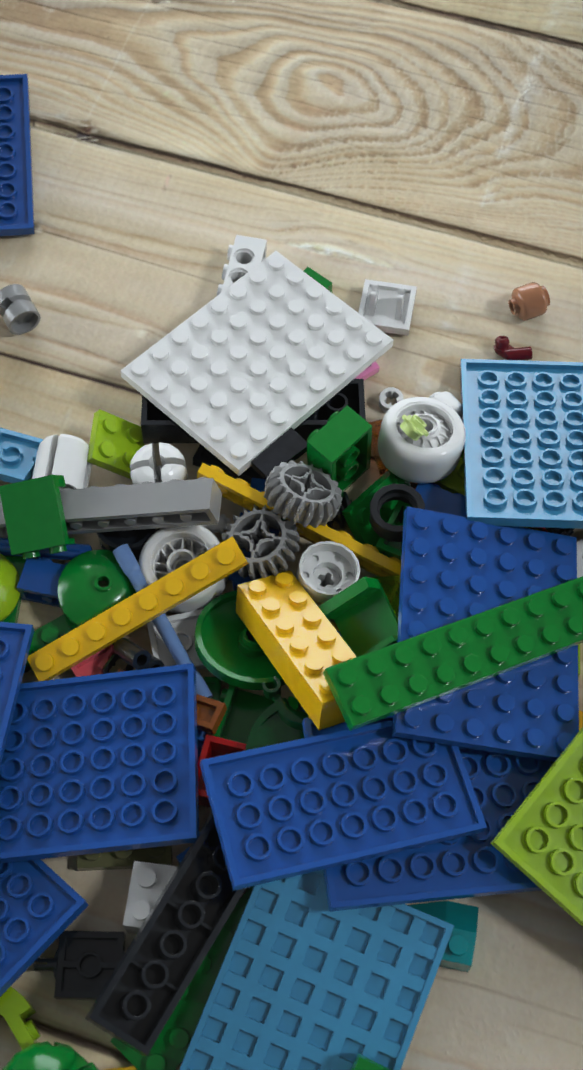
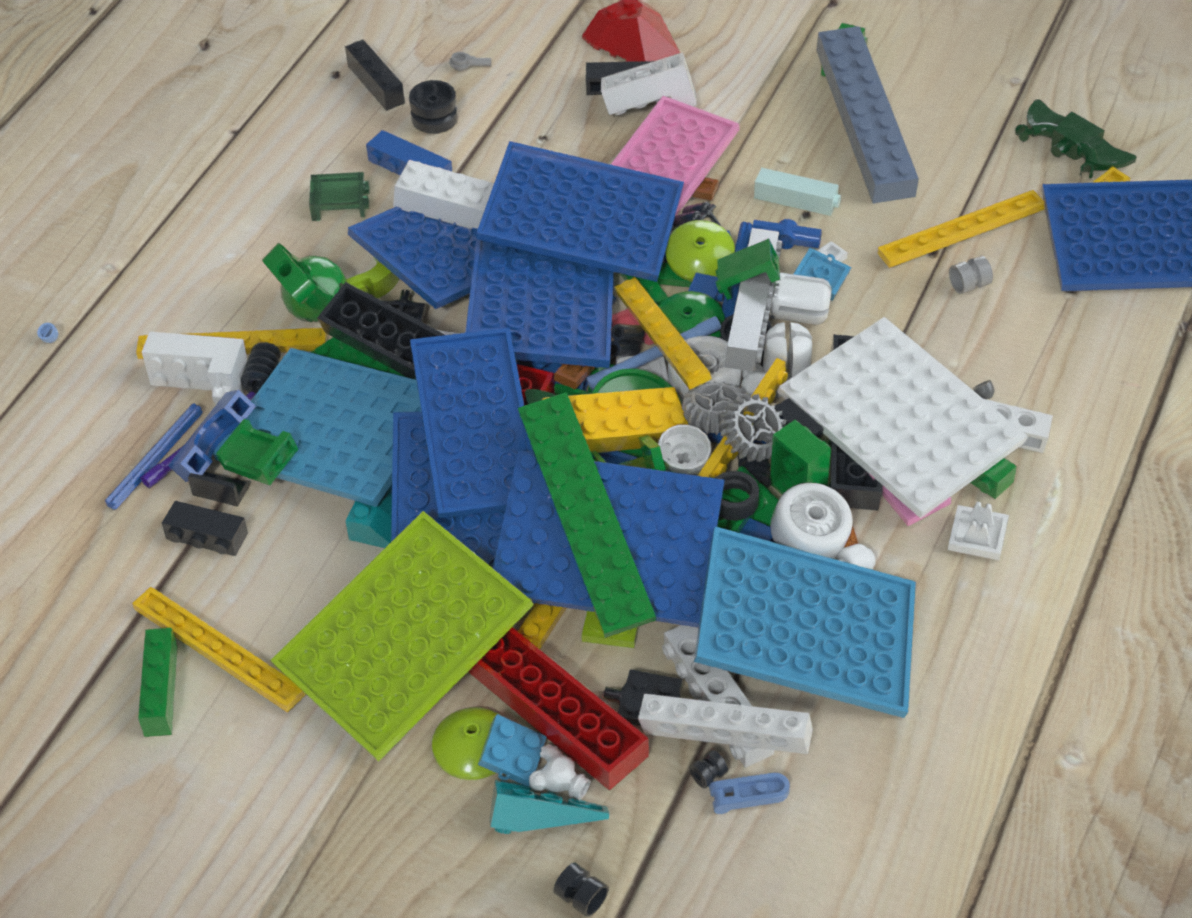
camera: 95 degrees right, 15 degrees down
(113, 443) = (823, 325): lime plate -> none
(184, 305) = (985, 389): none -> dark grey hinge
(389, 392) = (874, 524): white bush -> none
(414, 427) = (800, 494): yellowish green plate -> none
(508, 352) = (926, 626): dark red arm -> none
(529, 301) = (983, 641): nougat head -> none

